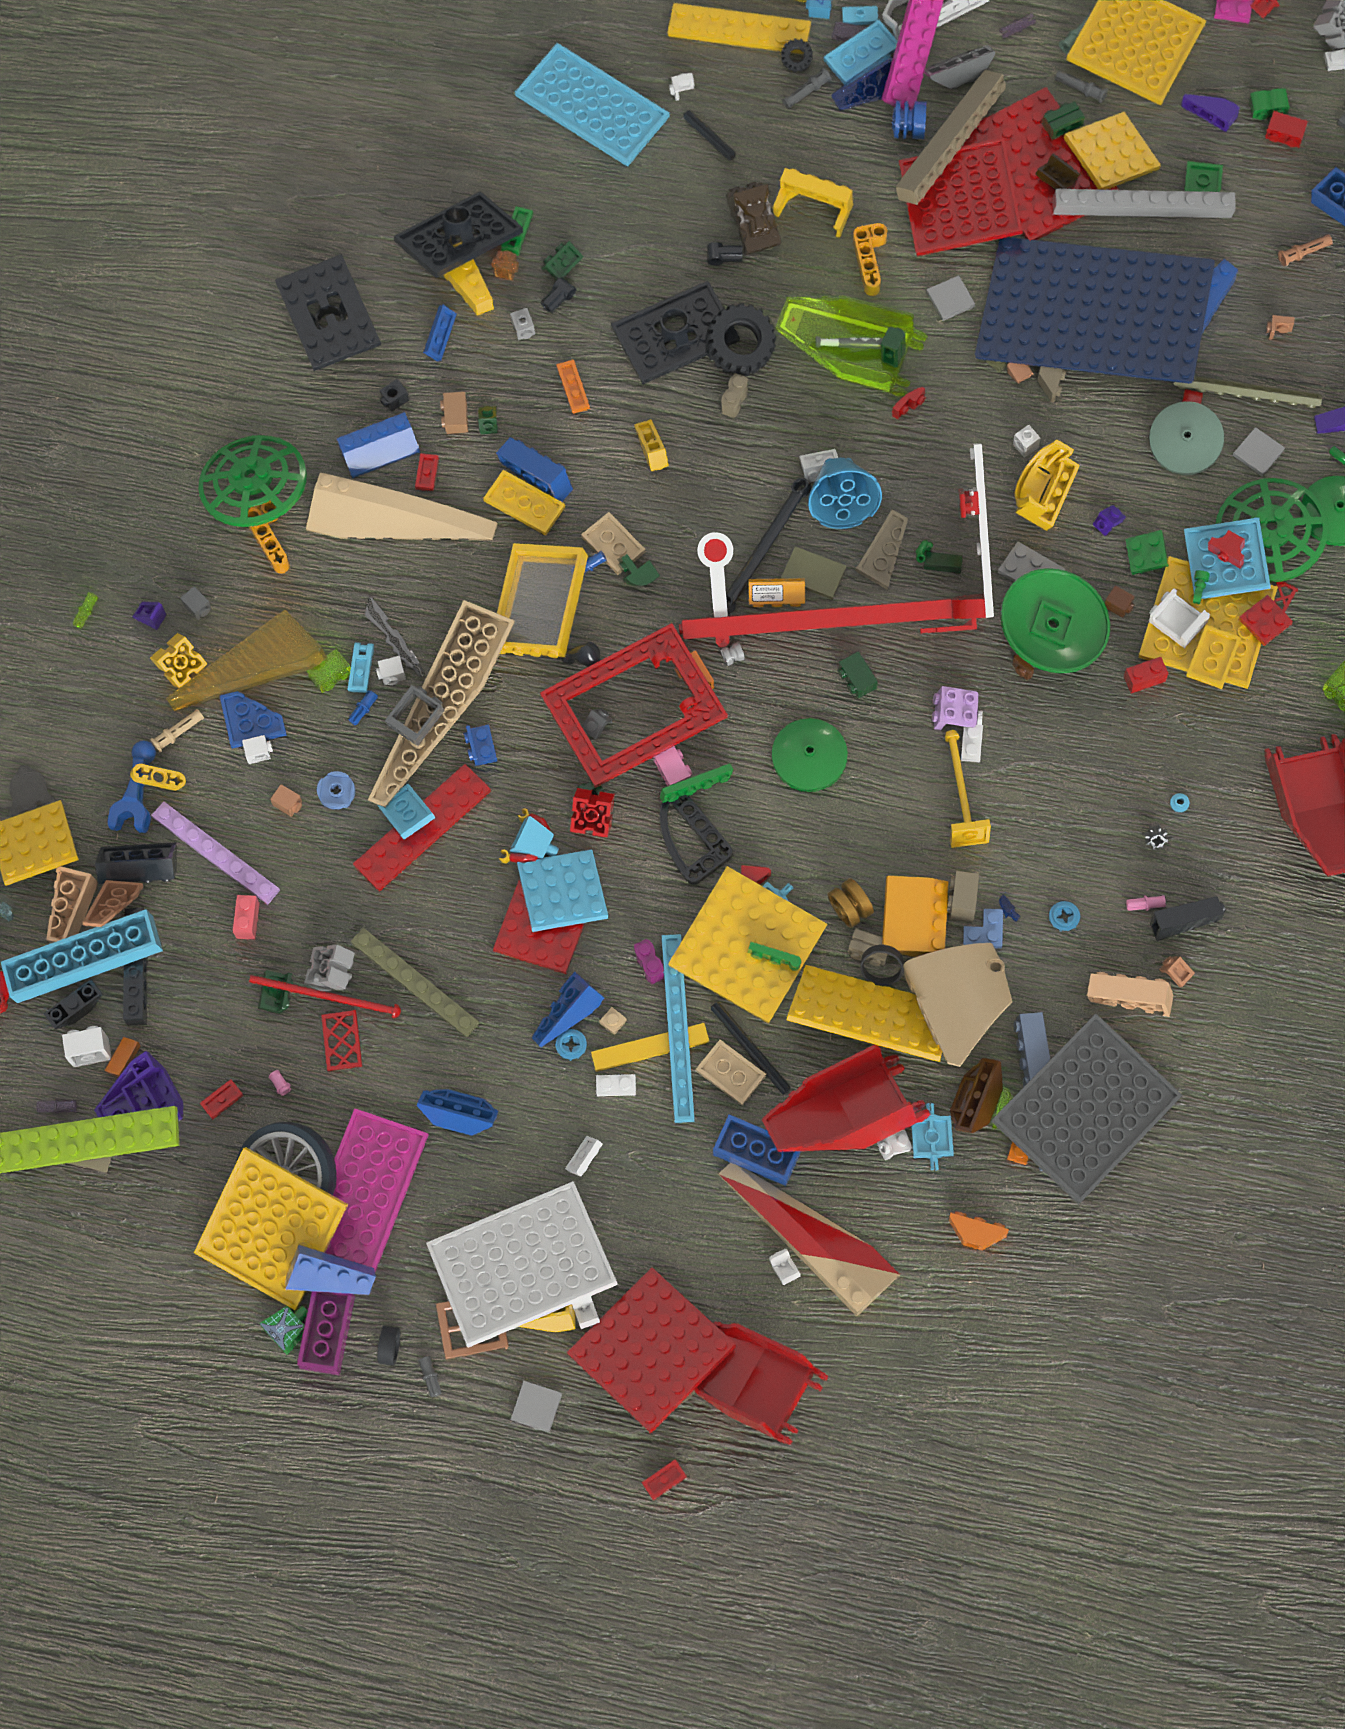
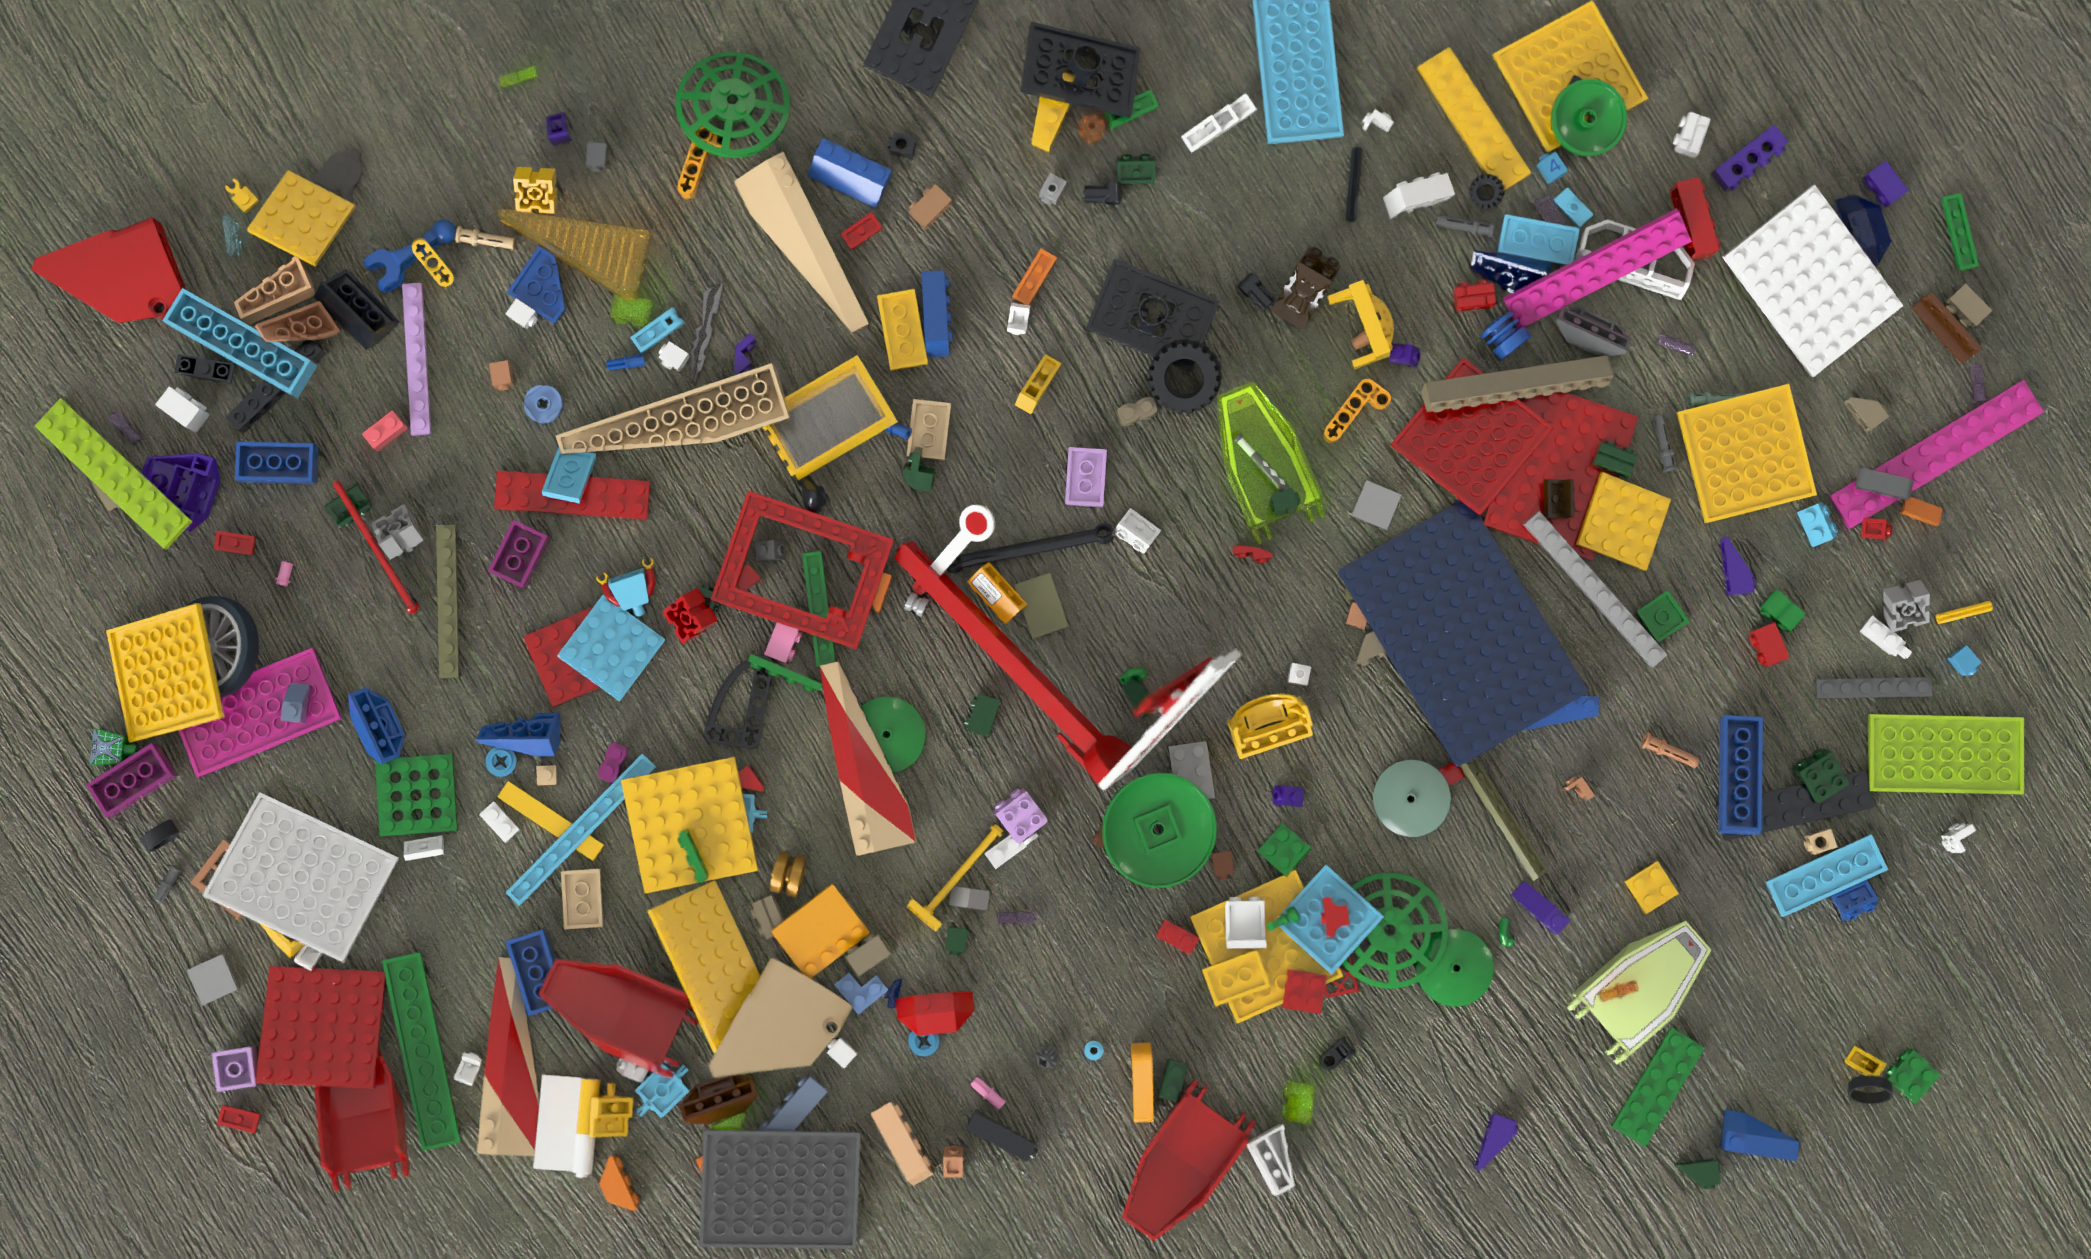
camera: 40 degrees right, 15 degrees up
(123, 1056) = (203, 440): orange slope -> none
(193, 1014) = (276, 462): none -> blue brick
(327, 1033) = (341, 587): red window -> none
(328, 1273) = (167, 747): wedge -> none
(386, 1153) = (295, 703): none -> sand blue slope
(420, 693) = (627, 412): dark grey window -> none
(430, 897) = (519, 554): none -> magenta brick
(438, 626) = (742, 364): none -> dark purple slope
(439, 333) = (987, 131): blue plate -> none
(481, 744) = (675, 478): blue bracket -> none
(487, 420) = (947, 236): dark green bracket -> none
(536, 1116) = (446, 802): none -> green piece
(582, 183) = (1219, 123): none -> white slope
(591, 419) = (1018, 318): none -> white bracket
(603, 749) = (748, 578): none -> red panel
(623, 1444) = (235, 1068): none -> lavender brick
(663, 717) = (818, 603): none -> green plate
(739, 1292) = (421, 1051): none -> green plate
(748, 467) = (1085, 477): none -> lavender plate
(750, 1048) = (614, 897): black axle -> none
(755, 99) = (1418, 194): none -> white wedge
(824, 212) = (1360, 340): none -> nougat cone
(843, 494) = (1122, 572): dark azure cone -> none
(843, 795) = (872, 797): none -> wedge
(861, 195) = (1405, 354): none -> dark purple bracket
(862, 121) = (1475, 296): none -> red brick
(881, 555) = (1101, 645): dark tan wing -> none
(882, 949) = (768, 934): black tyre -> none
(895, 1230) = (565, 1124): none -> white door
(916, 1187) = (610, 1114): none -> yellow plate
(984, 796) = (969, 898): none -> light grey slope
(1009, 829) = (956, 940): none -> dark green brick
(1021, 980) = (841, 1052): none -> white brick
(1030, 775) = (1016, 917): none -> clear purple axle
(1048, 889) = (935, 1012): none -> red wedge
(1227, 37) = (1818, 524): none -> medium azure bracket
(1235, 784) = (1142, 1082): none -> light orange beam
(1252, 763) = (1173, 1080): none -> dark green brick
(1258, 451) = (1452, 863): light grey tile -> none
(1332, 635) = (1337, 1053): none -> black piece

